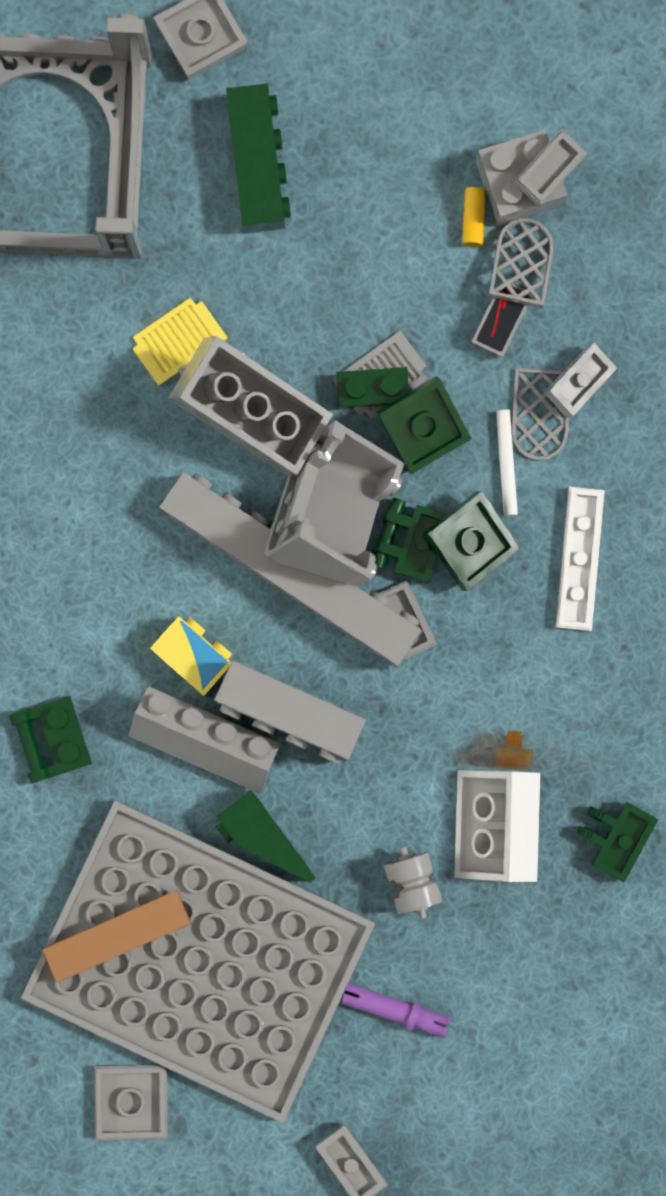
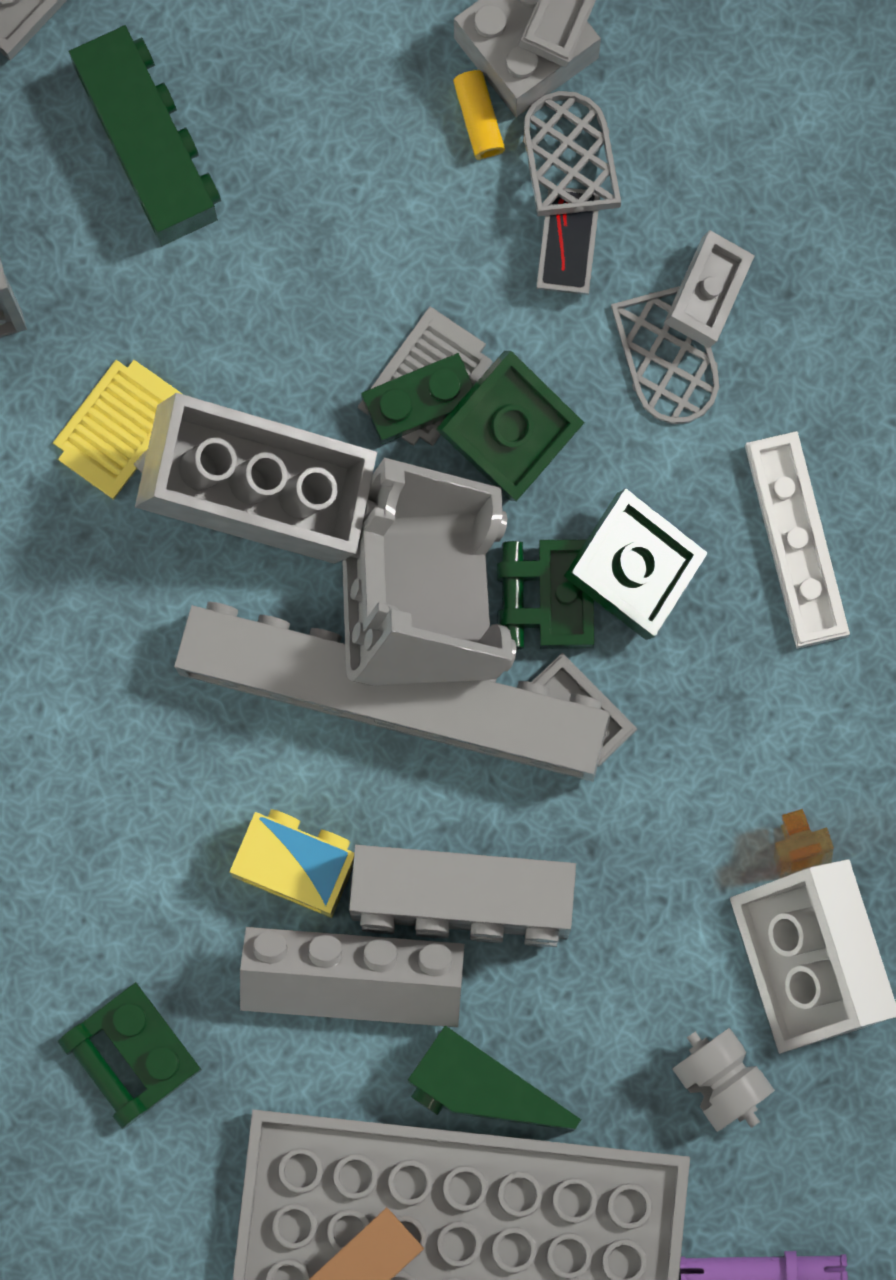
camera: 15 degrees left, 5 degrees down
(506, 463) = (645, 440): white bar -> none

